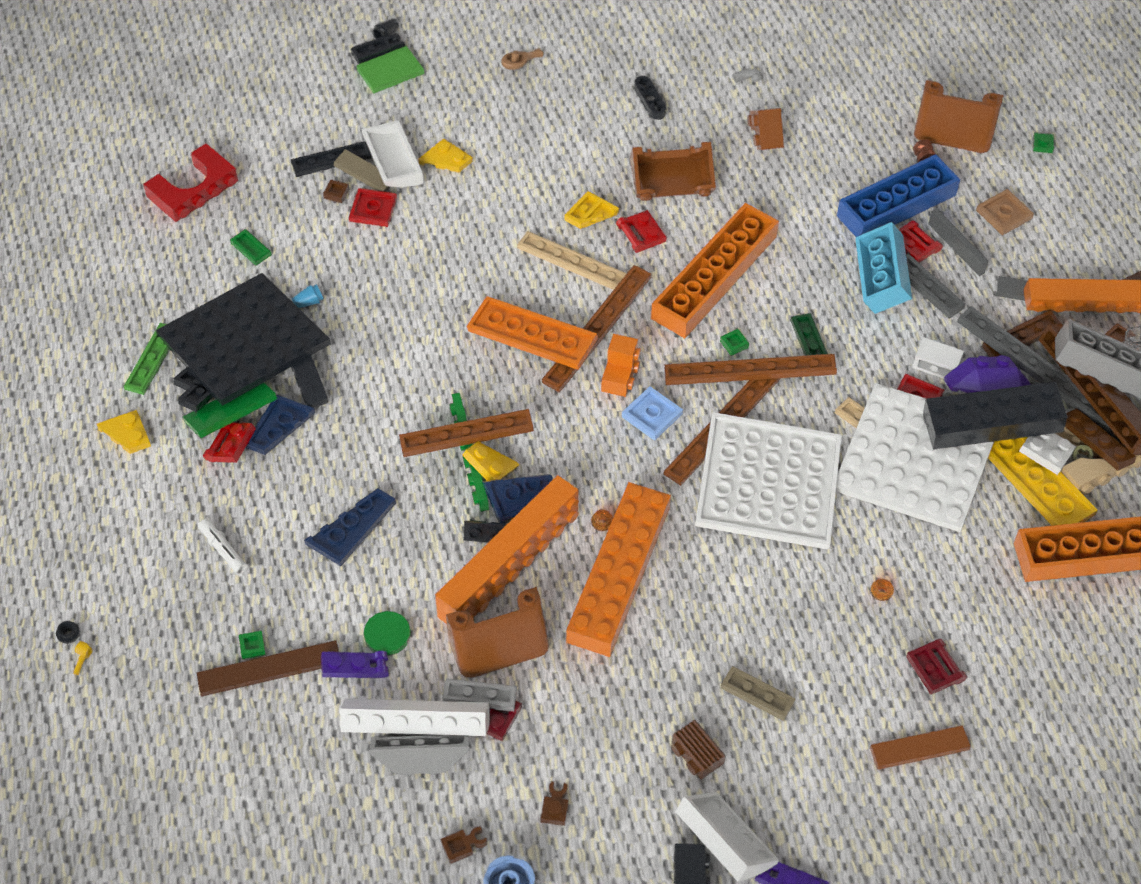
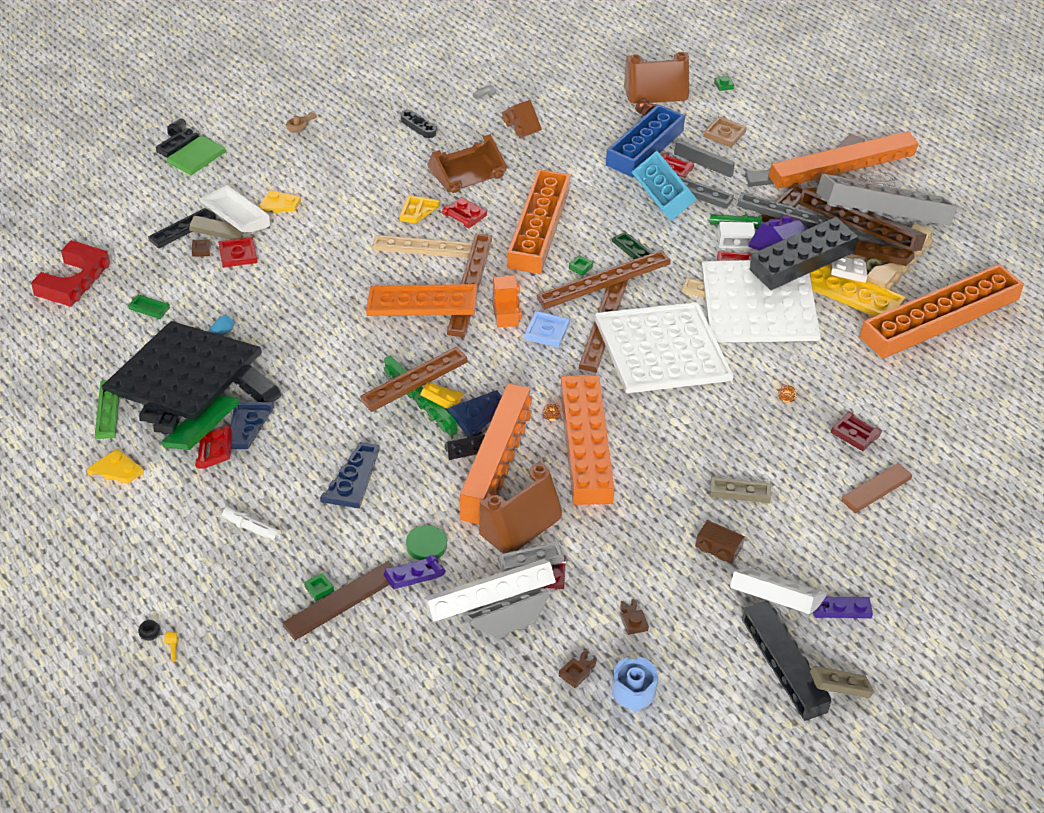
camera: 25 degrees left, 10 degrees down
(960, 342) = (715, 219): none -> green pin

